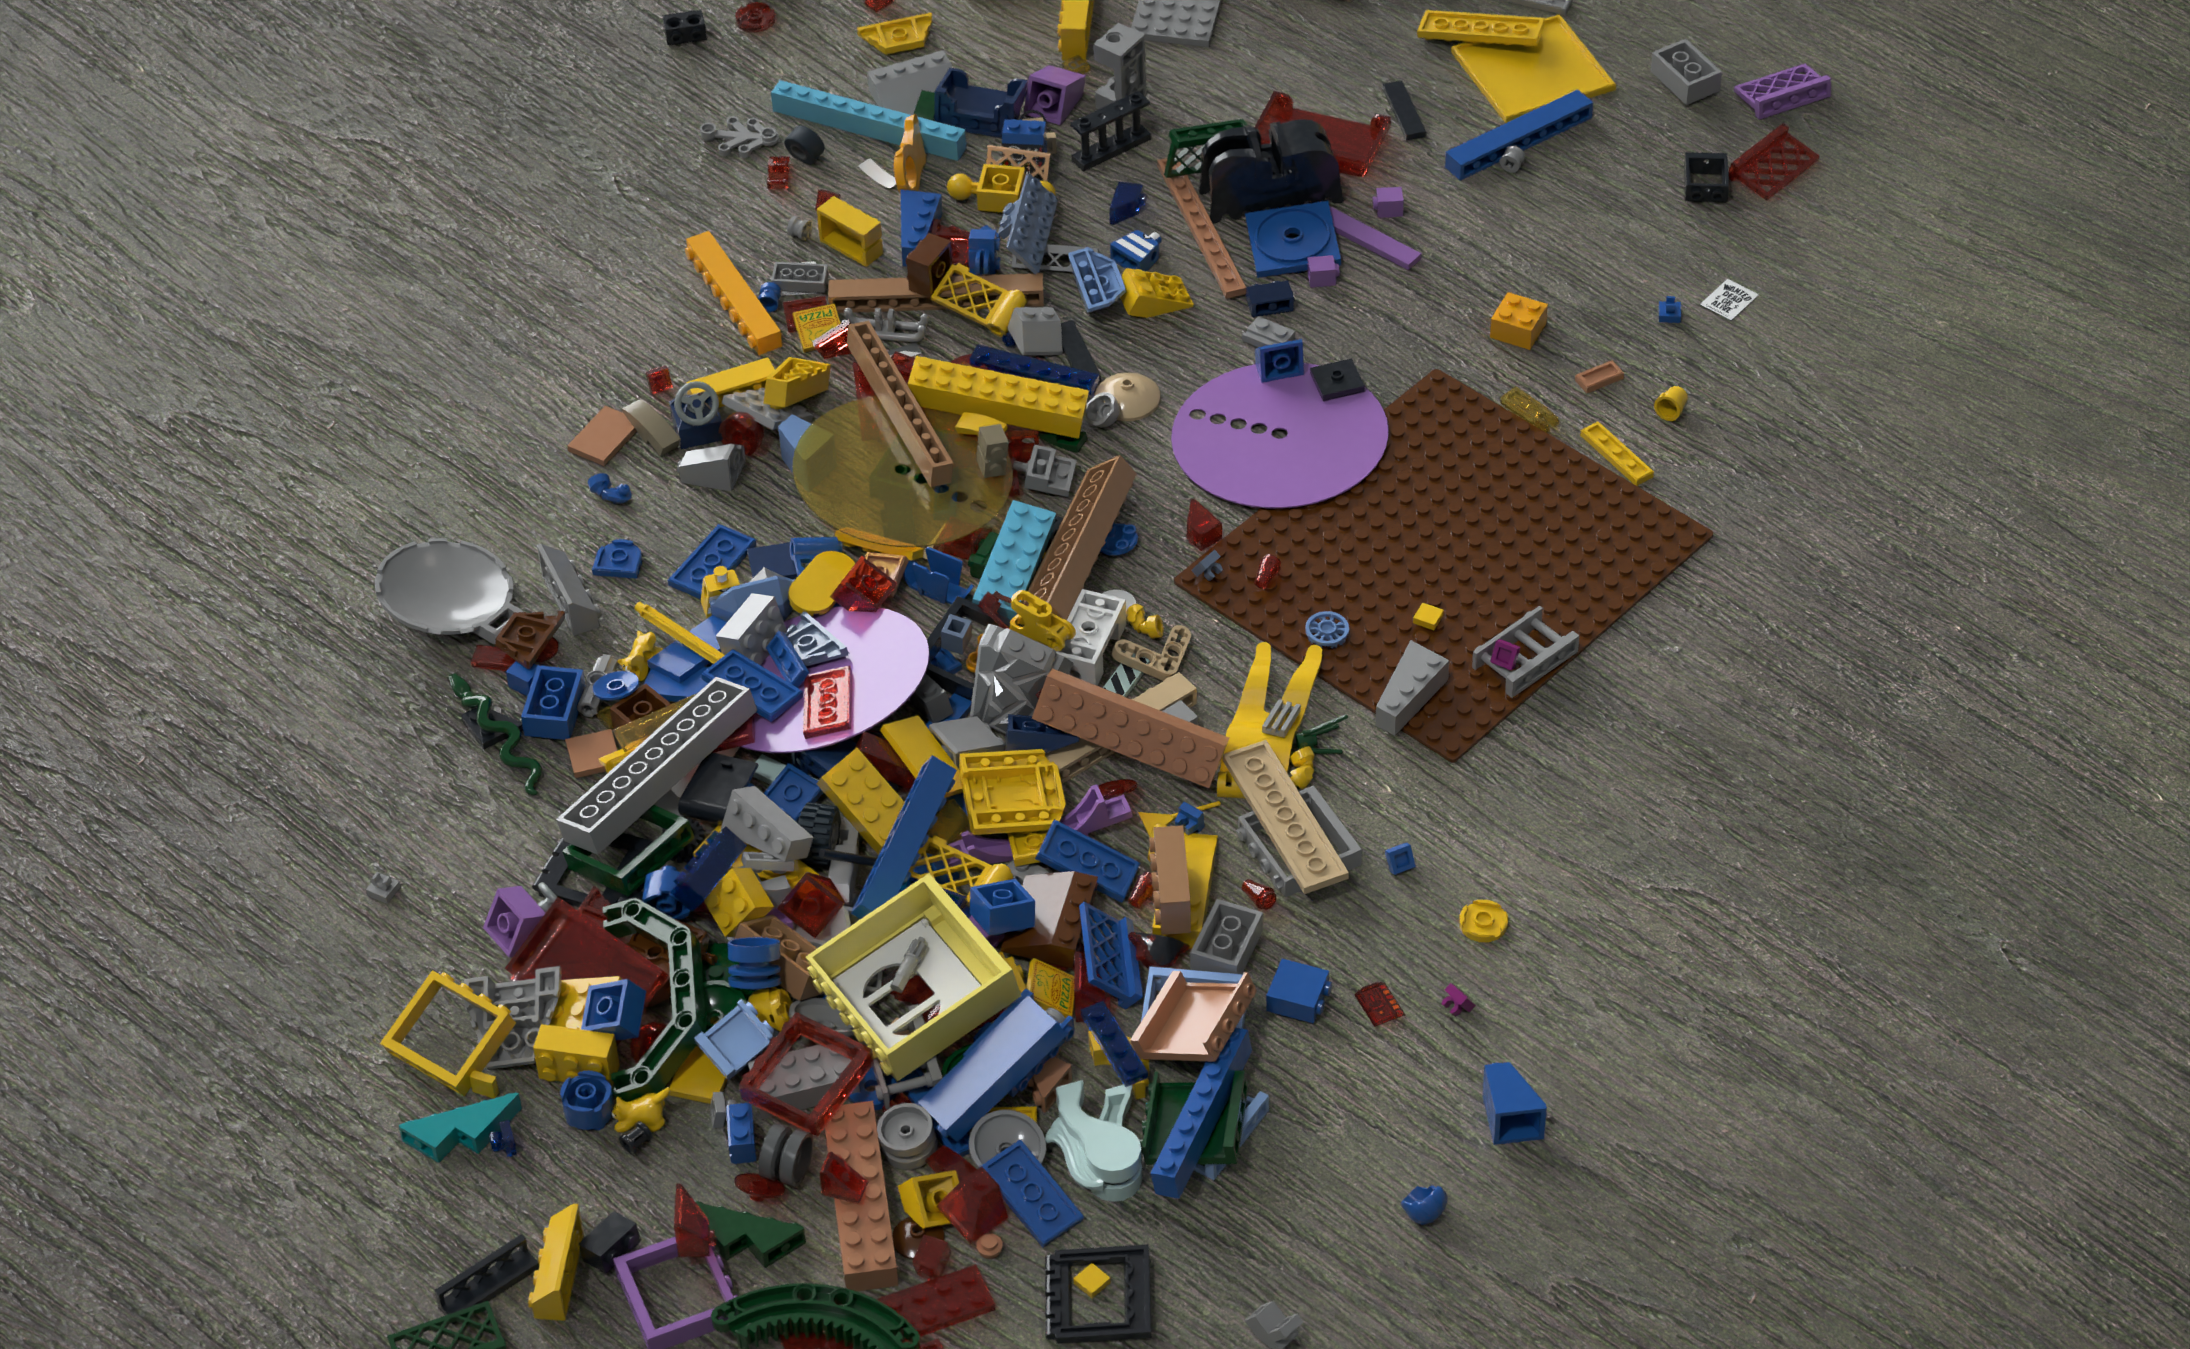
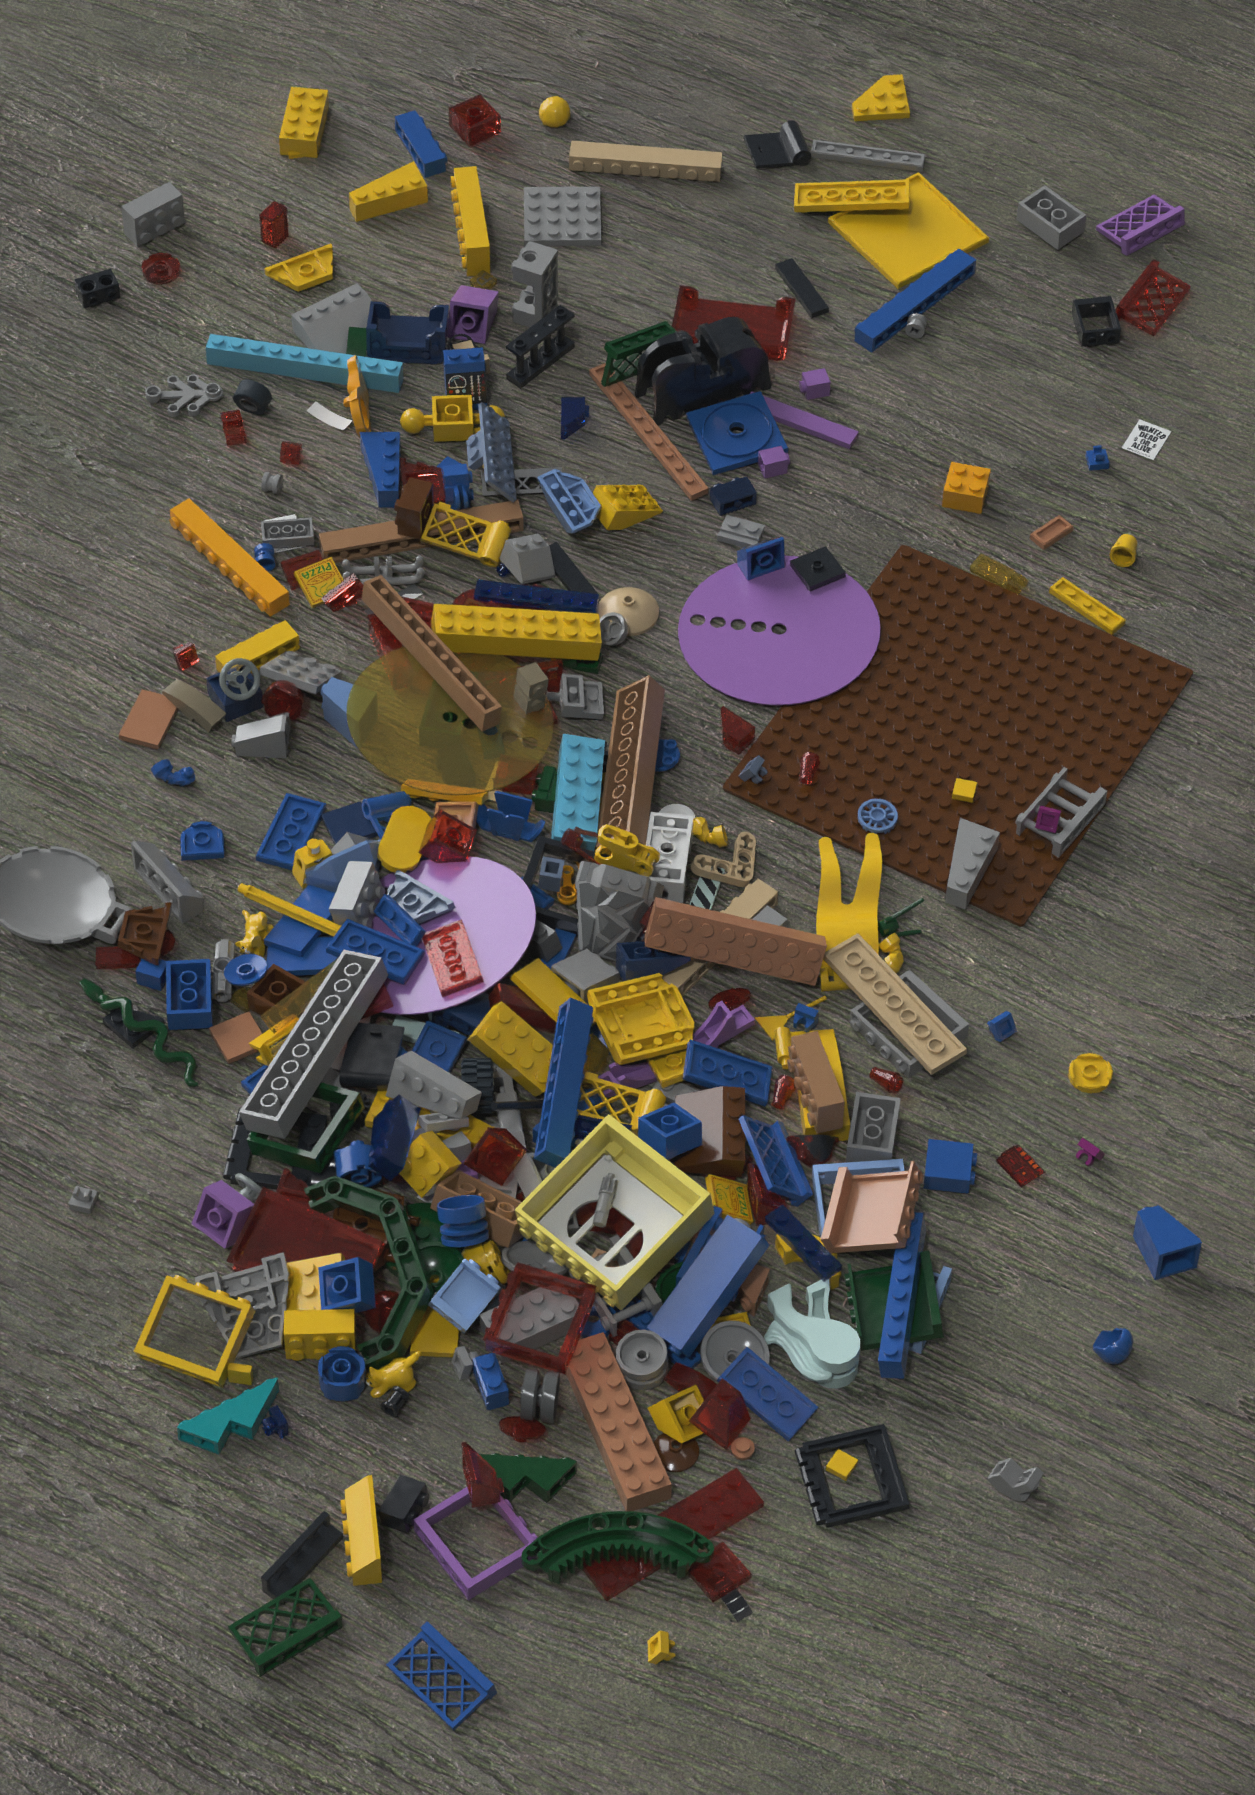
camera: 15 degrees left, 5 degrees up
(795, 381) = (321, 642): yellow wedge -> none
(841, 1180) = (603, 1413): clear red slope -> none
(850, 231) = (323, 481): yellow piece -> none
(931, 1257) = (696, 1469): clear red brick -> none
(970, 423) = (507, 663): yellow slope -> none
(1028, 154) = (472, 381): light nougat window -> none
(1136, 250) = (596, 464): blue torso -> none
(1284, 709) = (863, 898): light grey tile -> none

